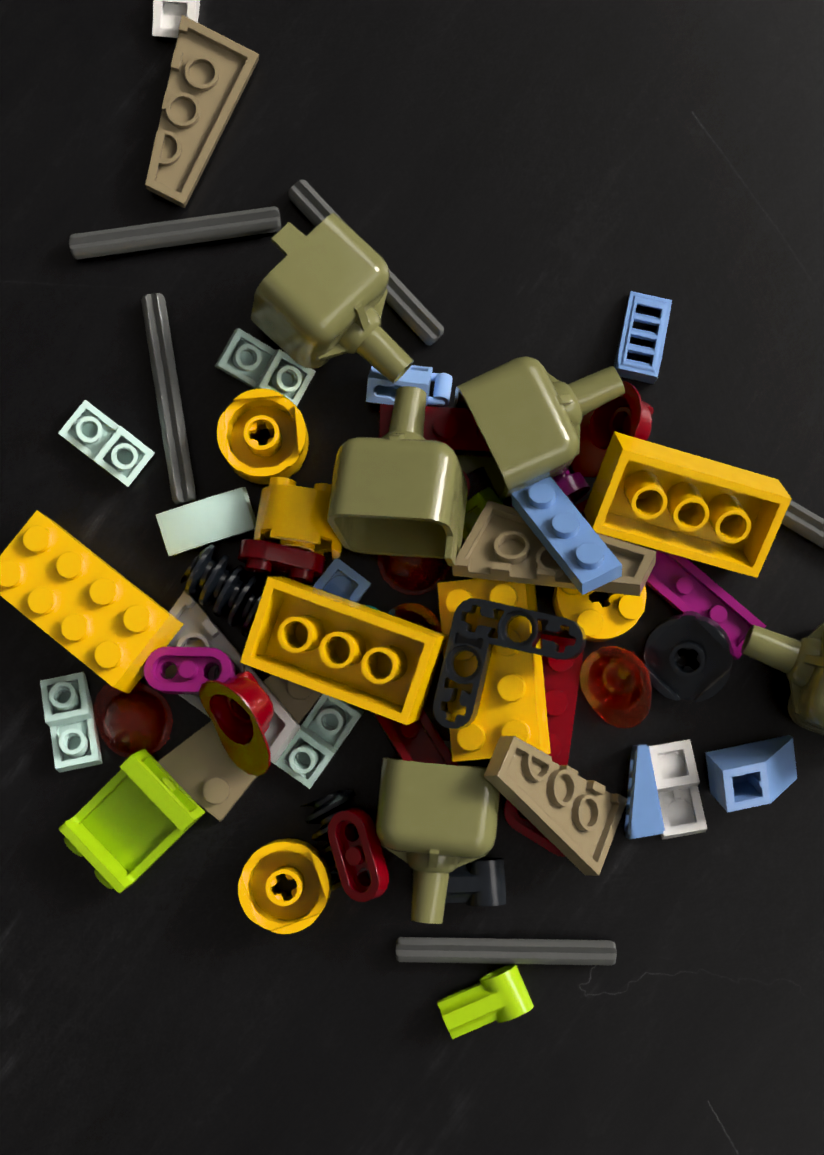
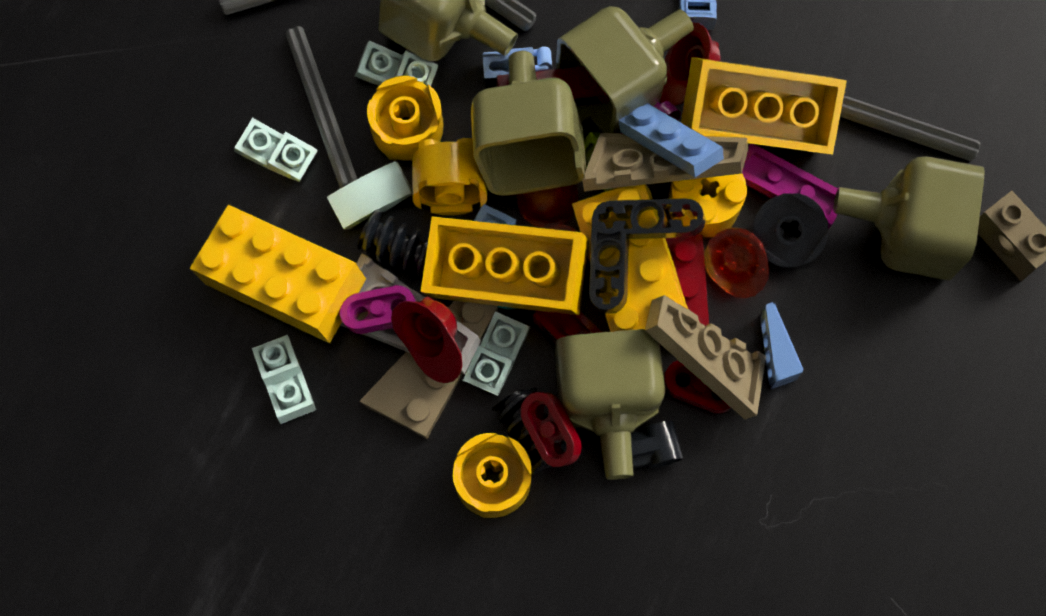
camera: 10 degrees left, 10 degrees down
(131, 821) = (350, 449): lime panel -> none
(133, 719) = (335, 369): clear red piece -> none
(268, 556) = (421, 207): dark red plate -> none
(496, 998) = (689, 541): lime piece -> none
(505, 951) = (690, 500): dark grey axle -> none
(678, 789) = (807, 338): white slope -> none
(751, 772) = (863, 312): medium blue slope -> none

